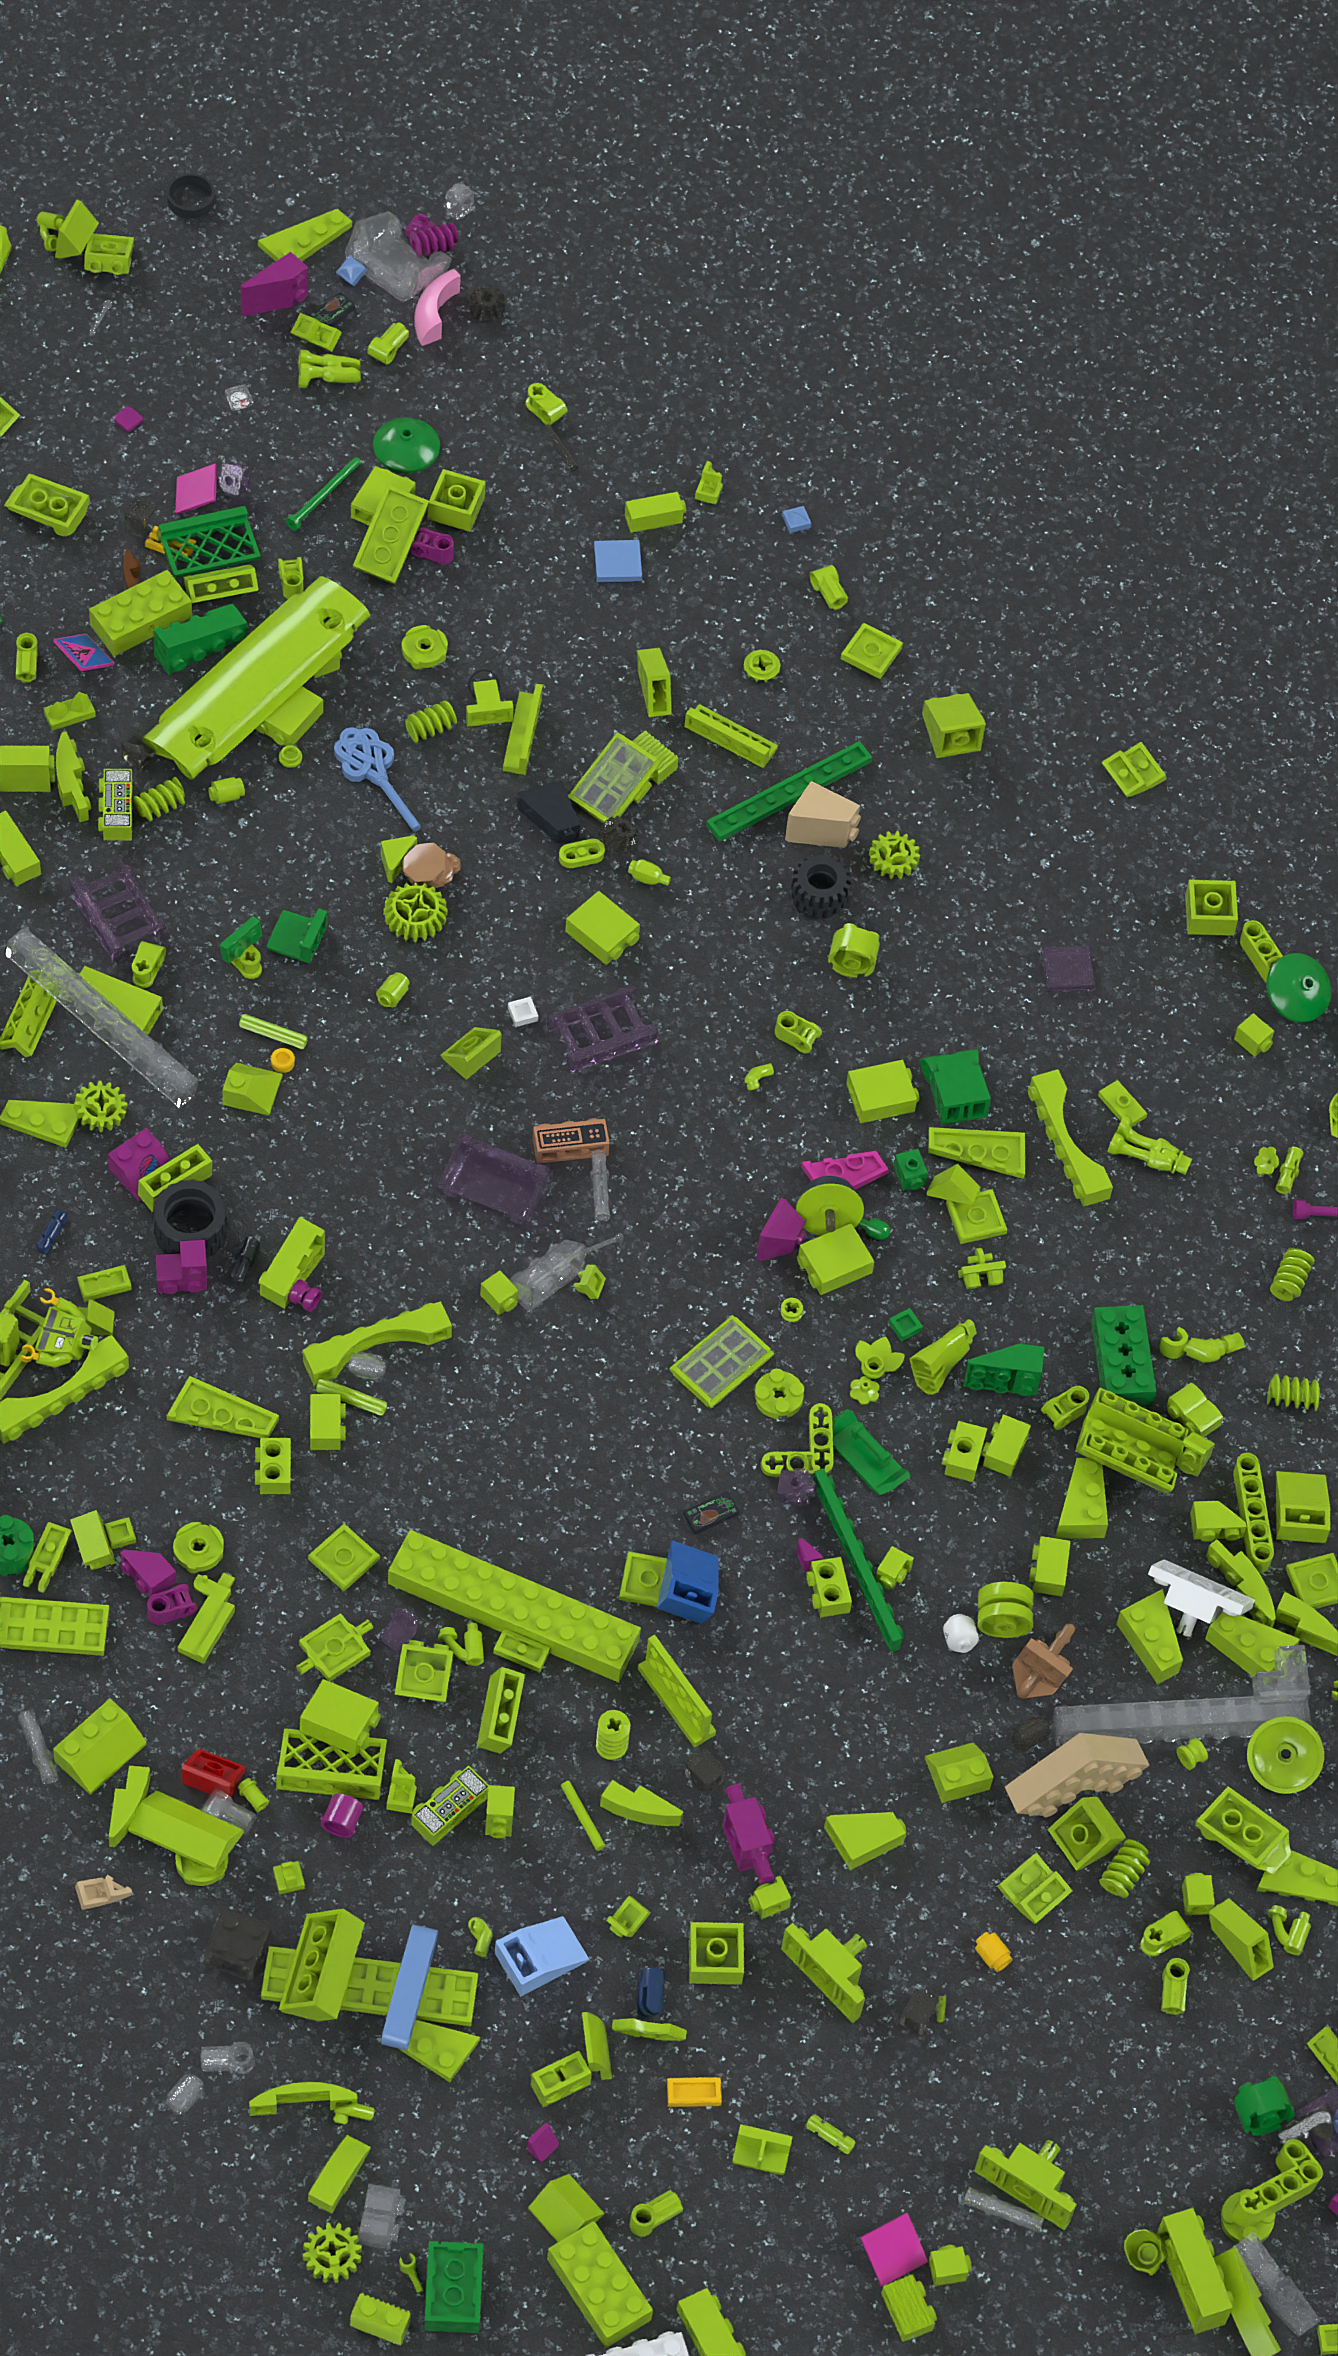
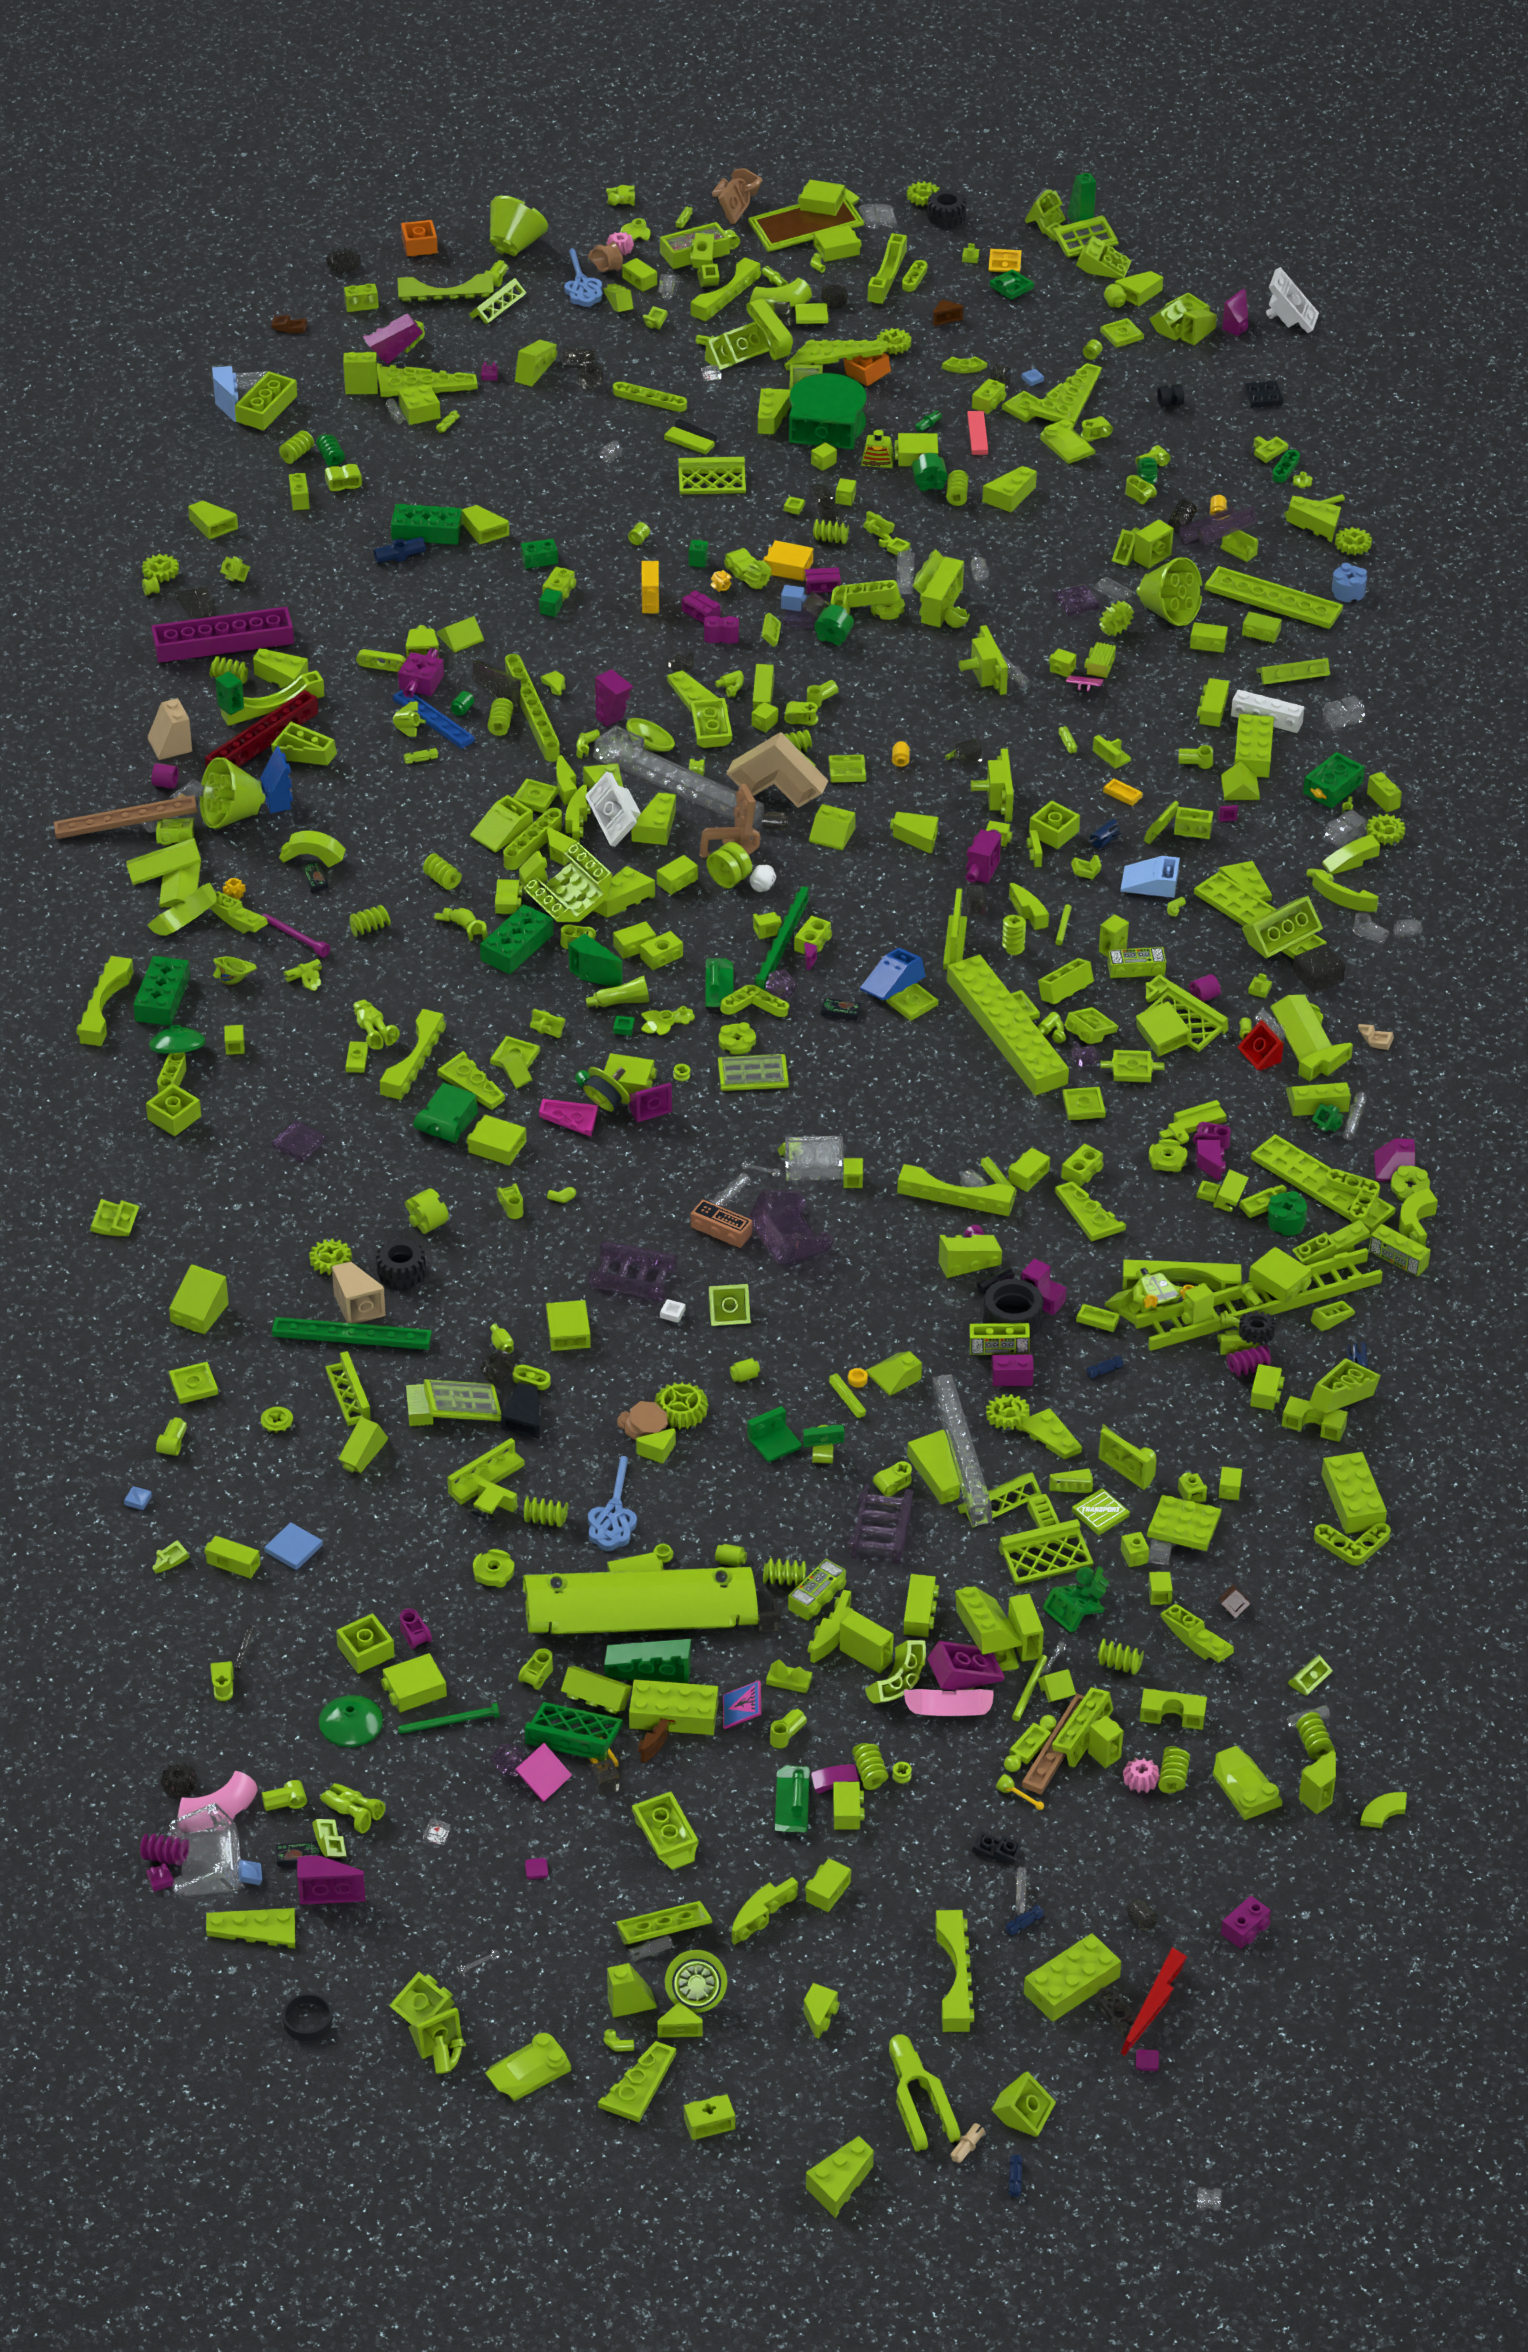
camera: 135 degrees left, 15 degrees down
(60, 1711) = (1328, 1117): none -> green brick
(390, 534) = (441, 1641): lime plate -> none
(409, 1987) = (1241, 894): medium blue beam -> none
(456, 196) = (109, 1873): clear brick -> none
(649, 2030) = (1126, 822): lime tile -> none
(705, 1903) = (1035, 851): none -> lime plate
(910, 1170) = (528, 1092): green brick -> none

